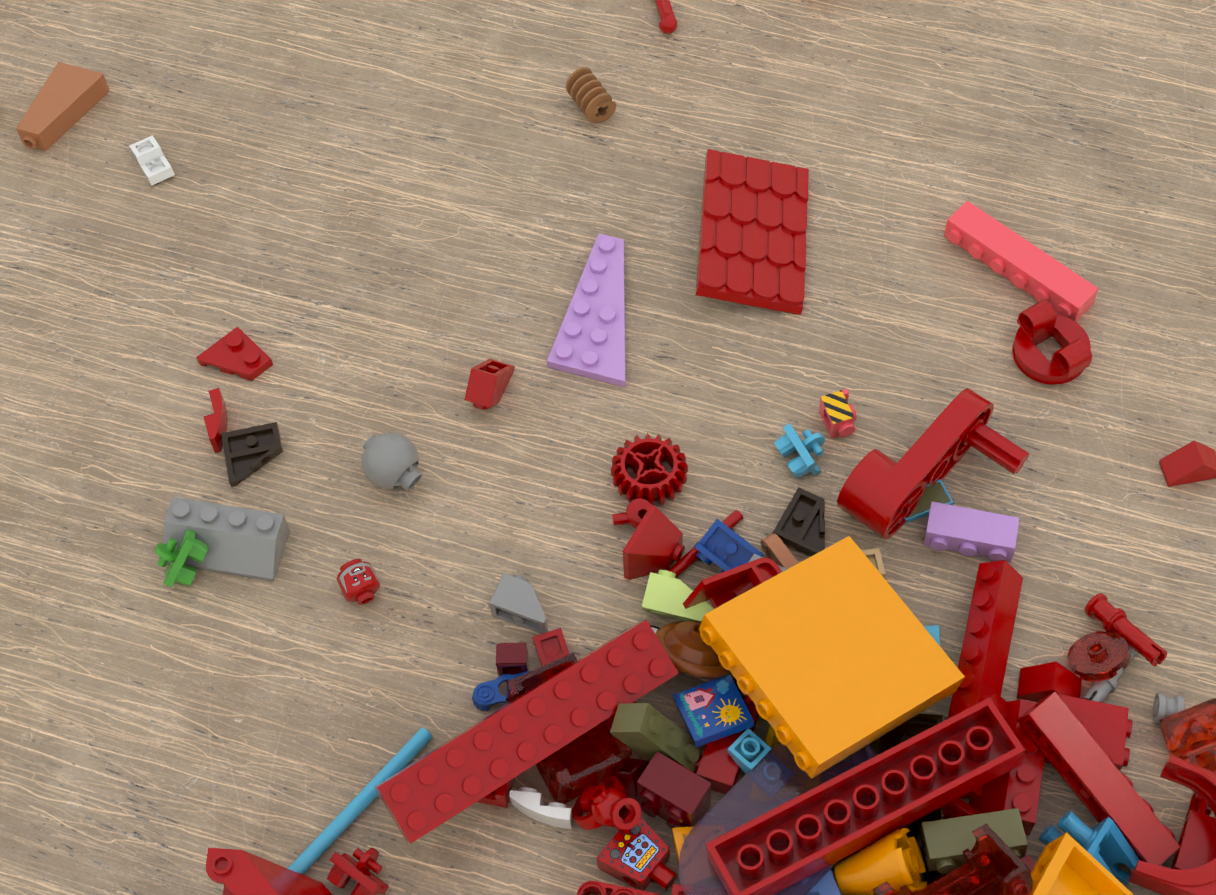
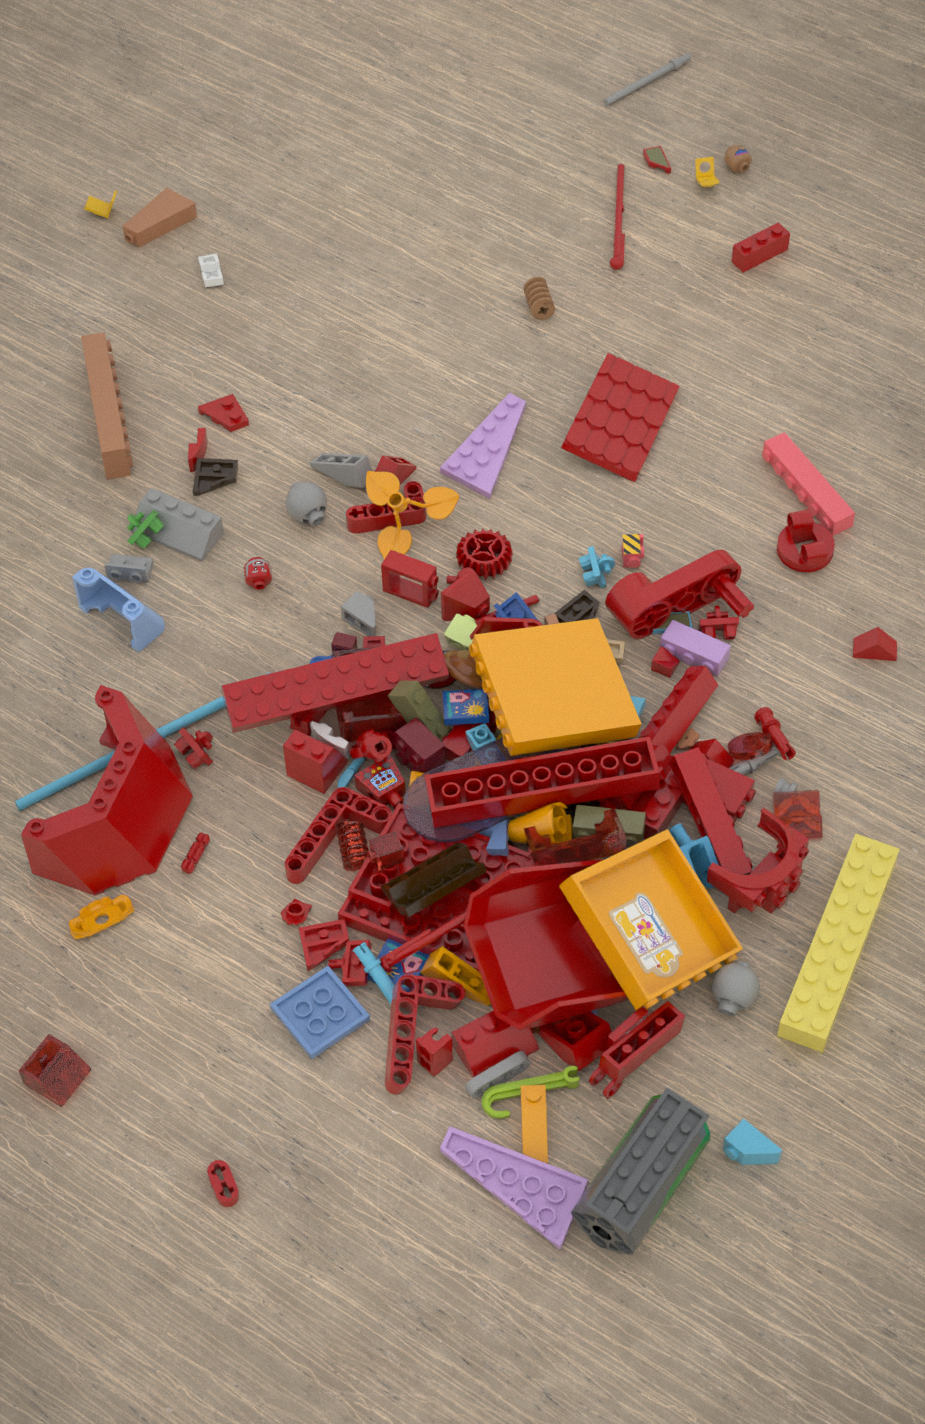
camera: 15 degrees right, 5 degrees down
(75, 390) = (107, 406): none -> nougat brick
(177, 620) = (129, 568): none -> light grey bracket
(215, 693) = (100, 592): none -> light blue windscreen
(425, 396) = (344, 468): none -> light grey slope
(462, 460) = (374, 517): none -> red beam
(486, 417) = (384, 489): none -> light orange plant
(531, 852) = (312, 761): none -> red slope
(568, 536) = (400, 564): none -> red window
(583, 855) = (351, 770): none -> medium azure piece
(939, 563) = (664, 663): none -> red slope
(1000, 488) = (719, 621): none -> red hips
(1019, 663) = (688, 739): none -> nougat plant

